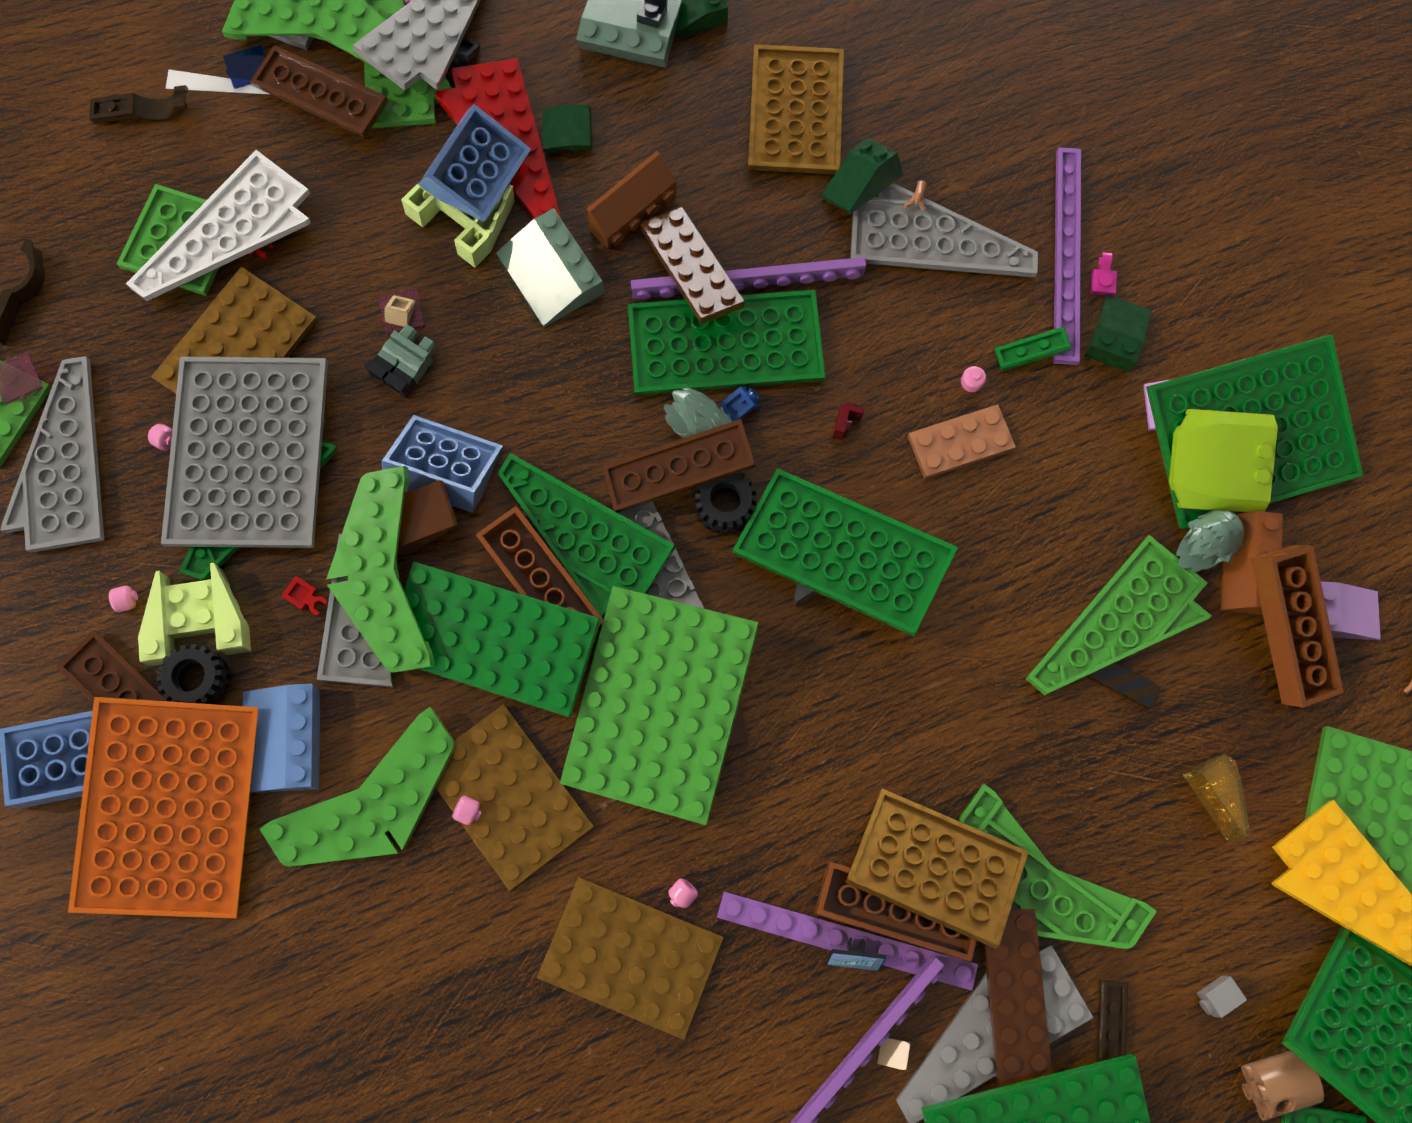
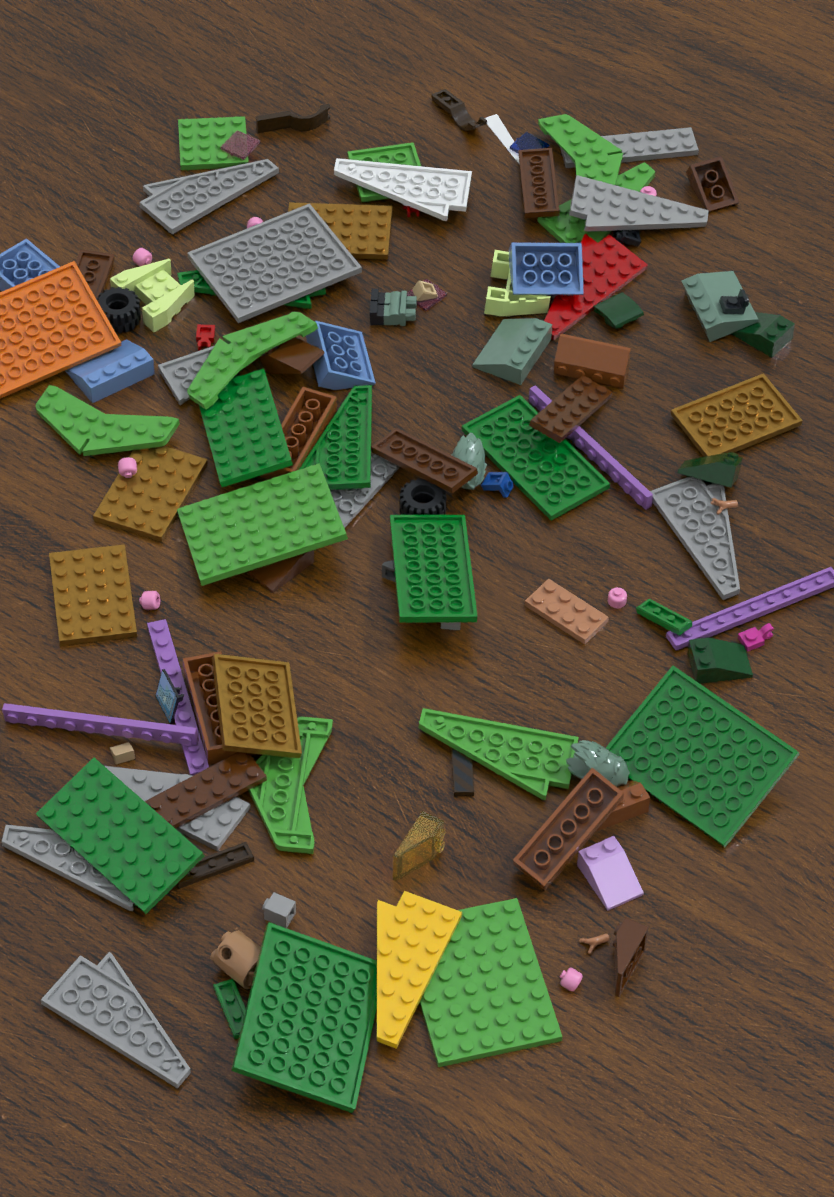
camera: 60 degrees right, 25 degrees down
(846, 413) = (528, 539): dark red bracket -> none
(1223, 460) = (659, 742): lime wedge -> none

